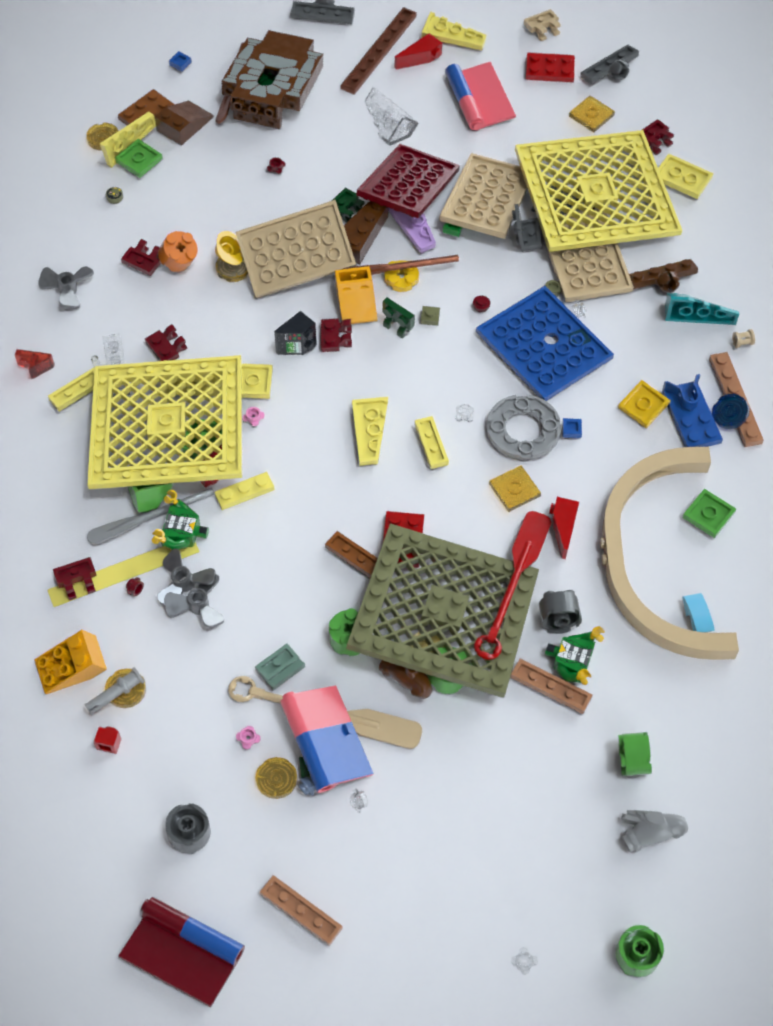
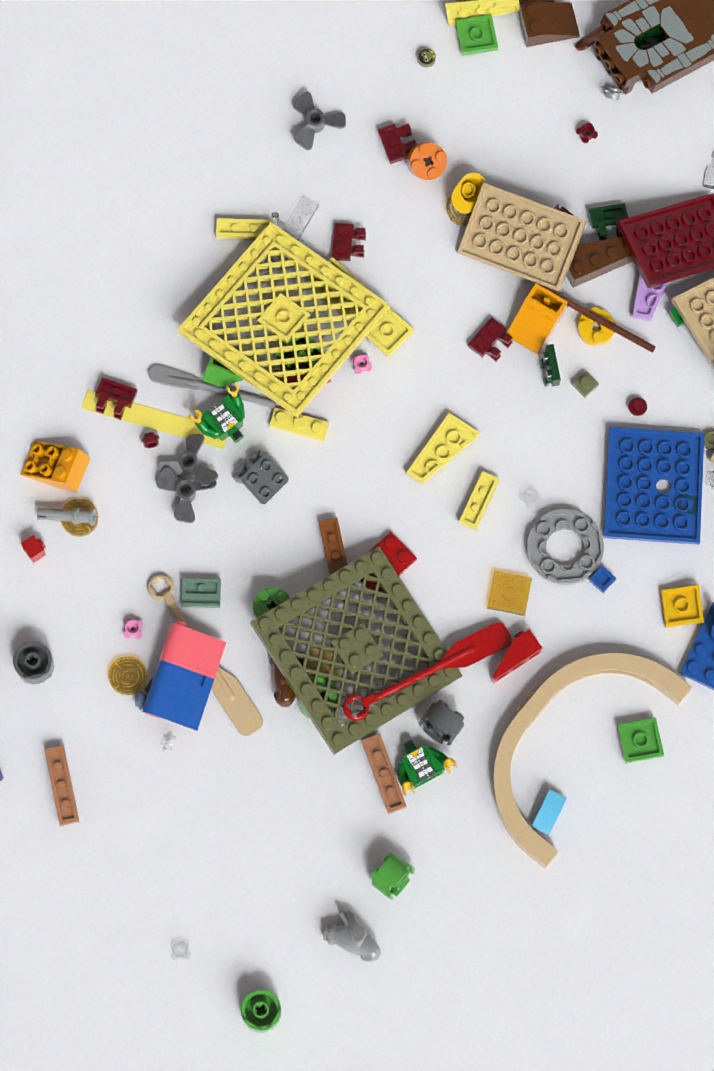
camera: 40 degrees right, 15 degrees up
(36, 361) = (233, 179): clear red slope -> none
(248, 545) = (261, 476): none -> dark grey bracket
(271, 130) = (613, 93): none -> light grey plate
(296, 335) = (453, 319): black slope -> none

